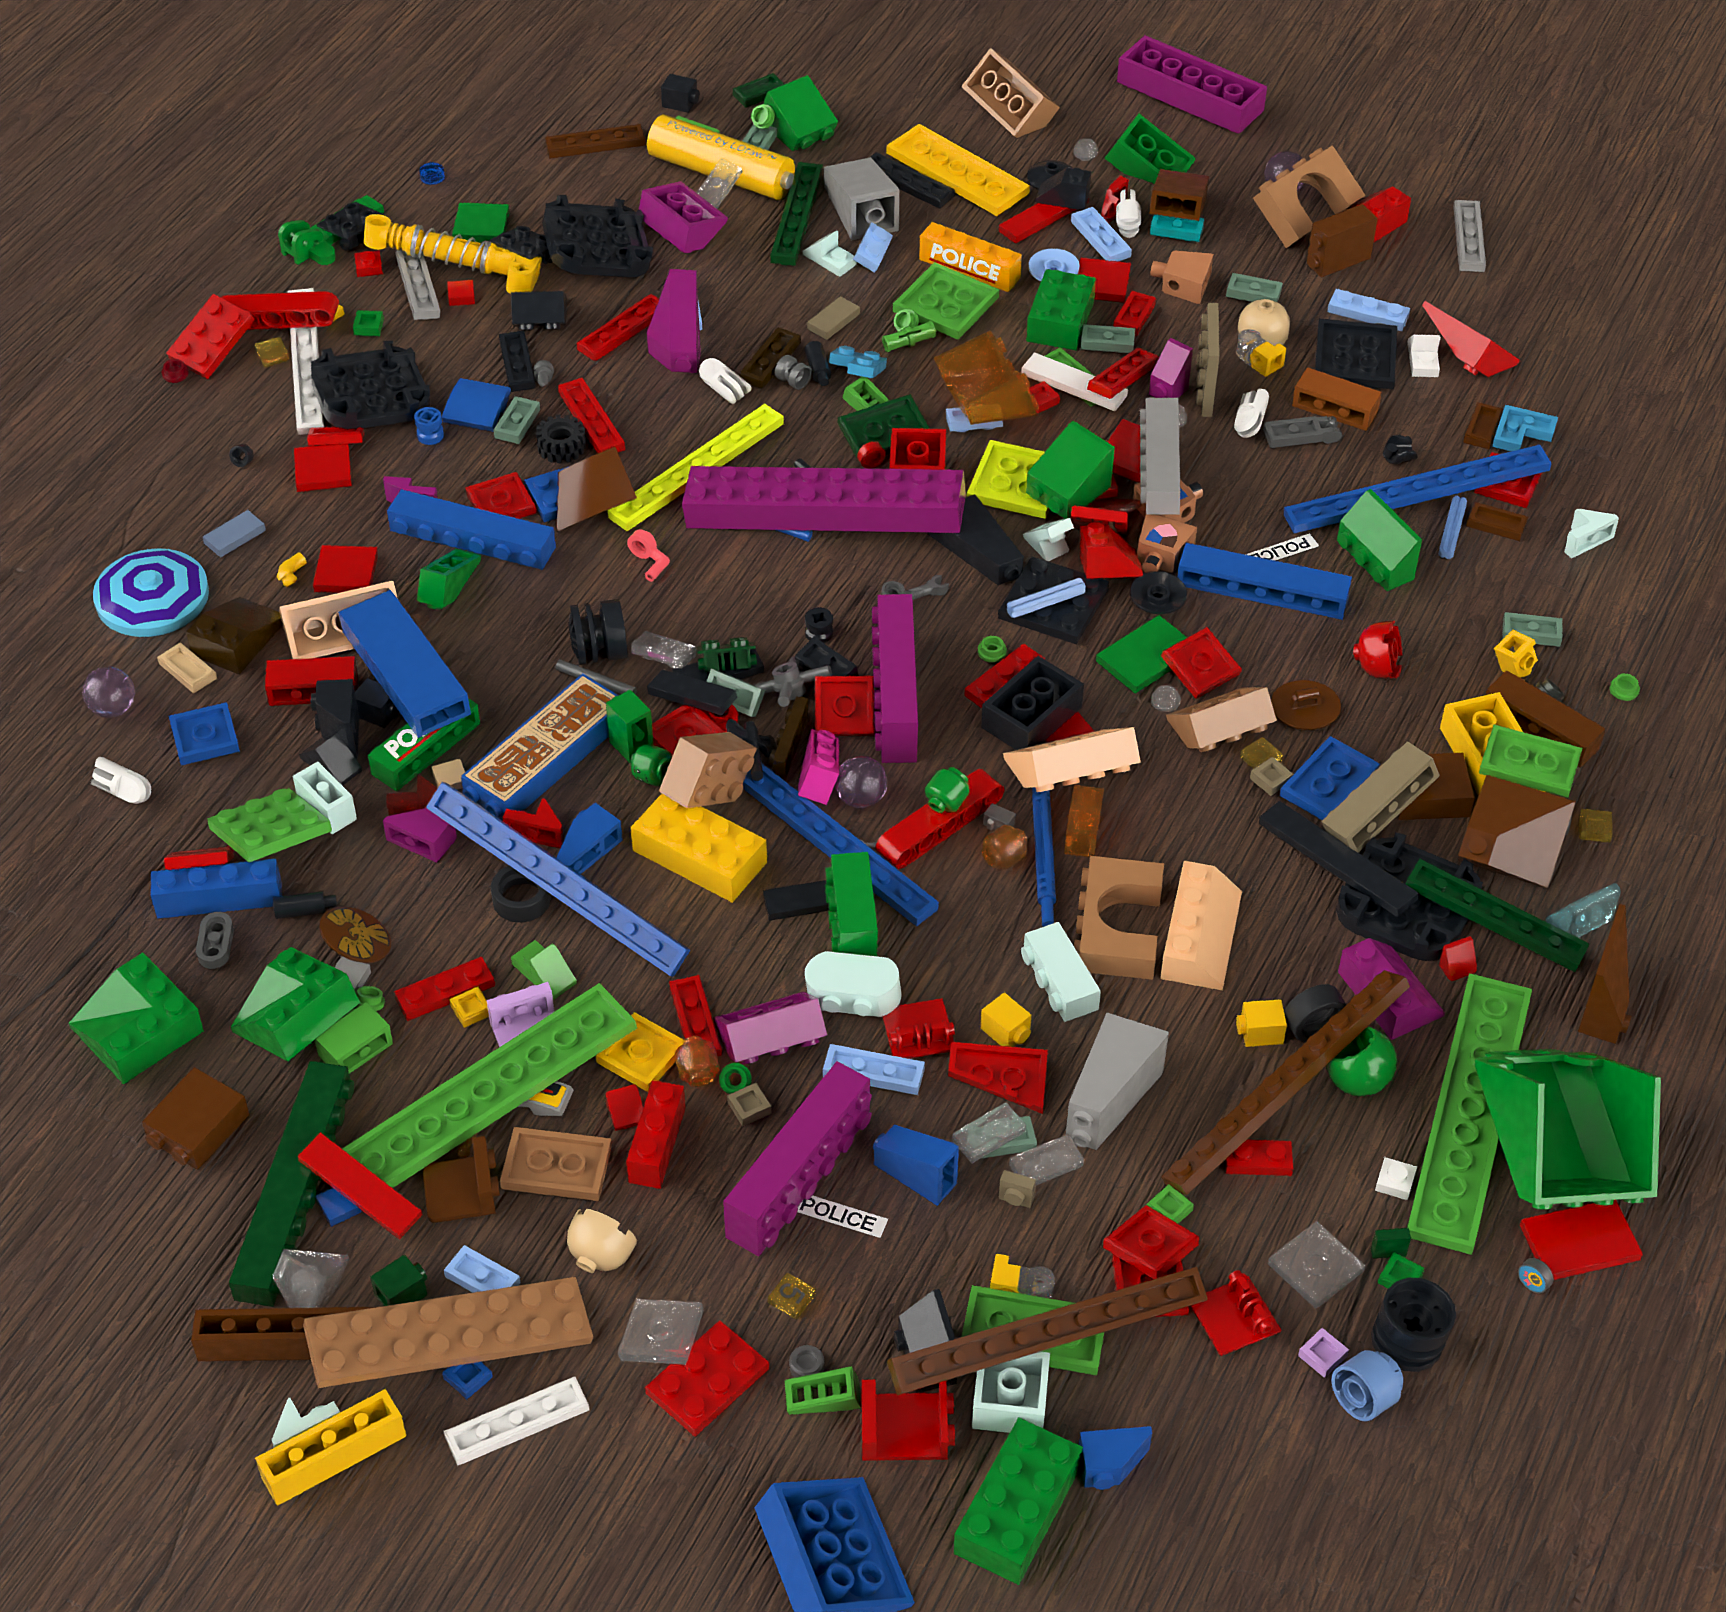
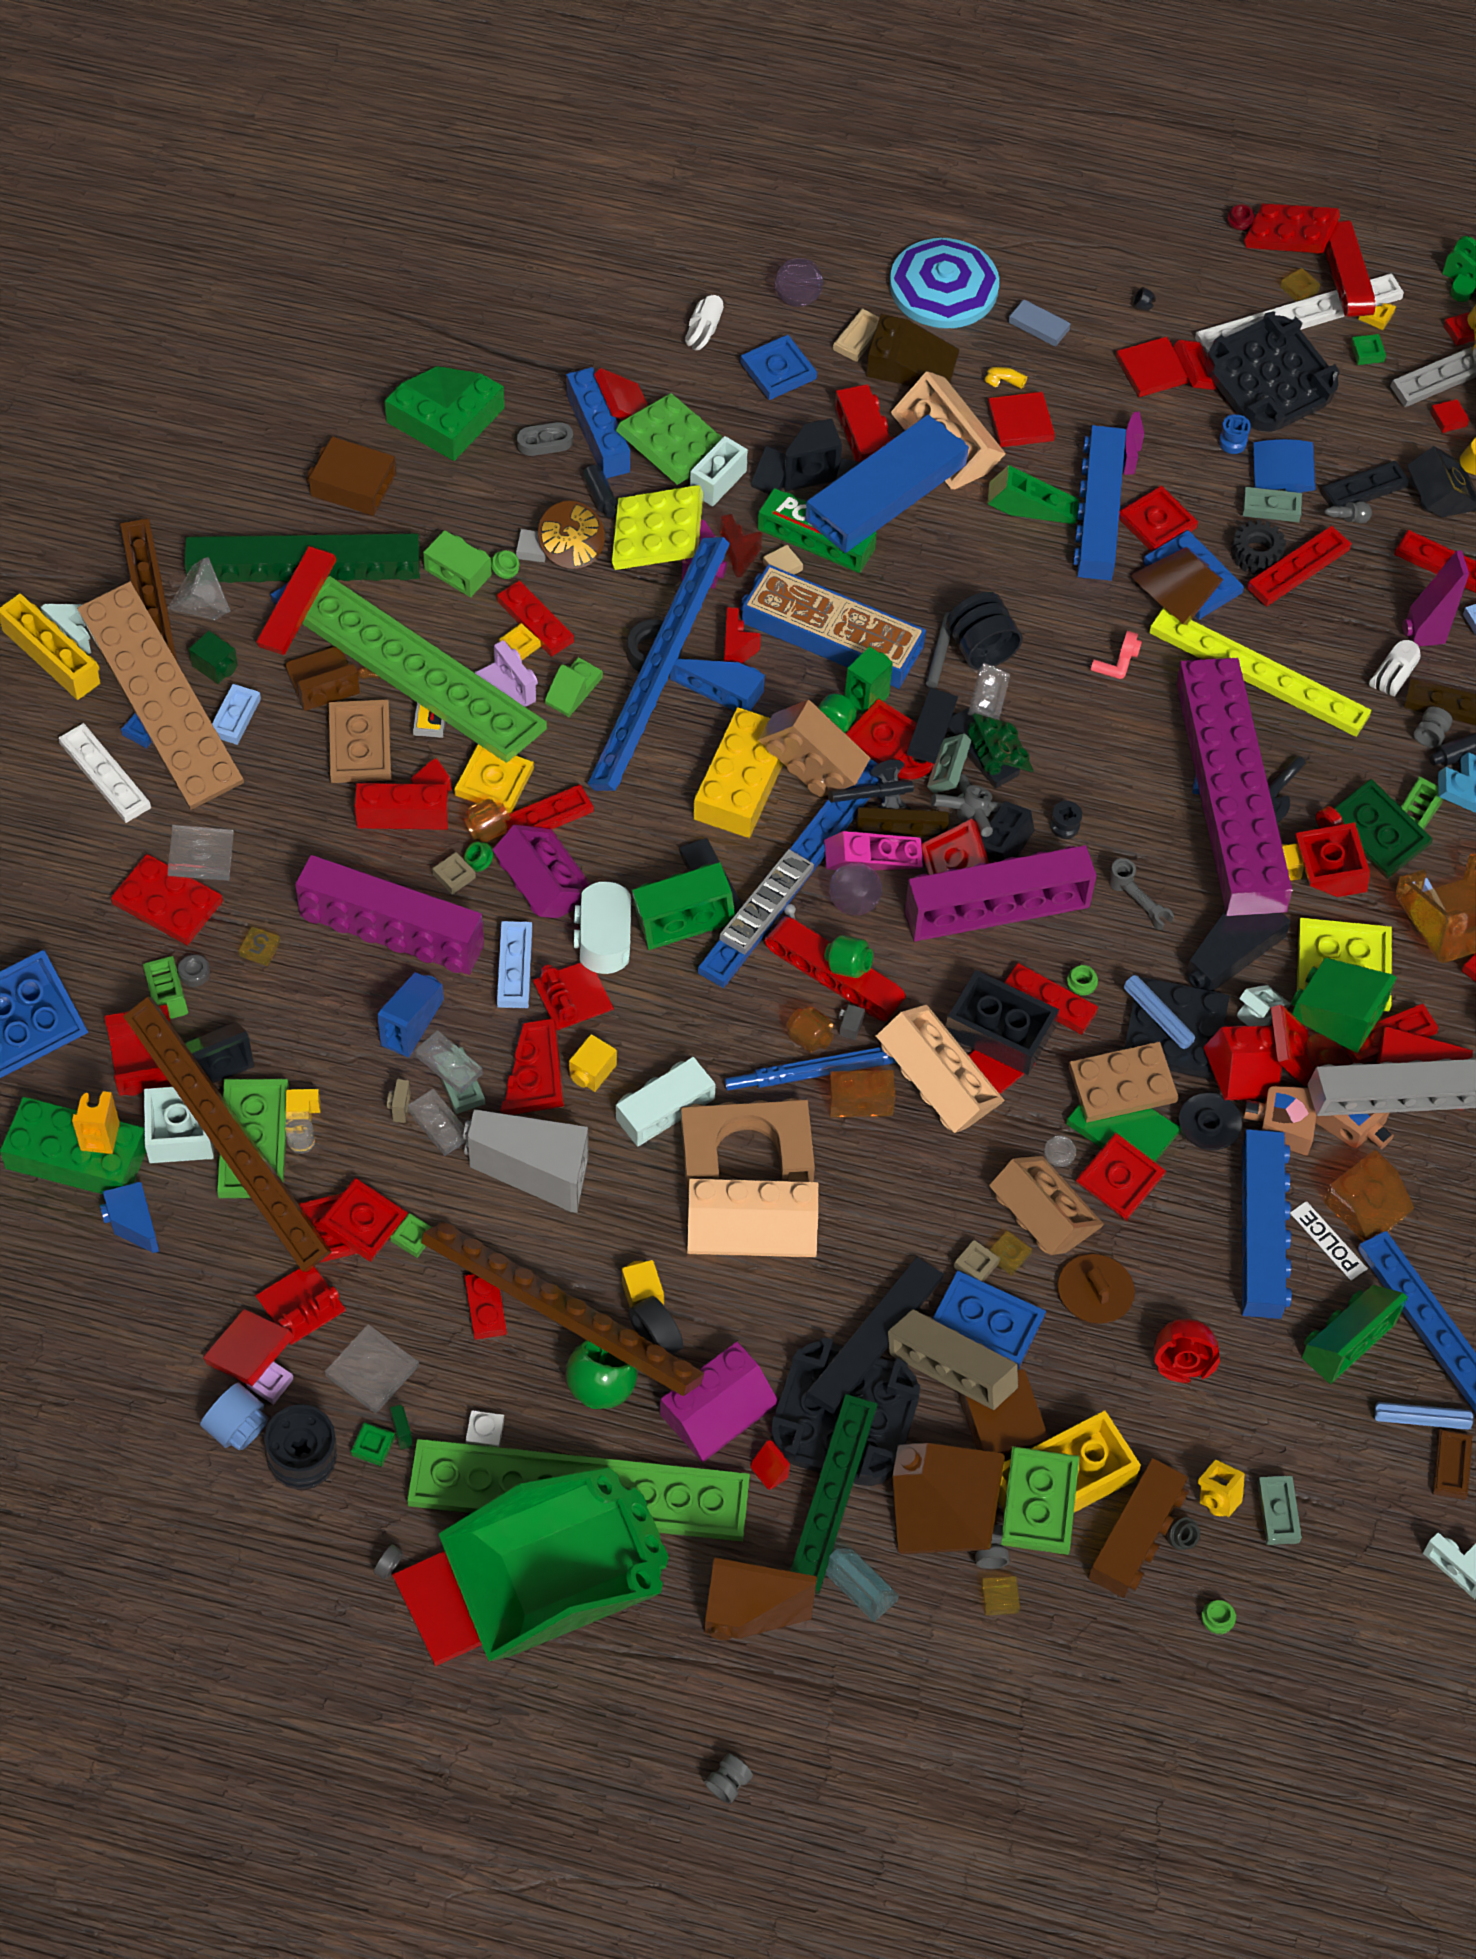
camera: 75 degrees right, 10 degrees up
(294, 1003) = (475, 508): green slope -> none
(377, 859) = (657, 527): none -> neon yellow plate
(598, 1242) = (274, 784): tan cylinder -> none
(843, 1216) = (355, 973): white sticker -> none
(847, 838) = (766, 902): none -> tile
(1032, 1433) = (96, 1126): none -> light orange hinge
(1110, 638) = (1123, 1082): none -> medium nougat plate
(1246, 513) = (1369, 1197): none -> clear orange slope
(1286, 1364) = (248, 1347): none -> red tile

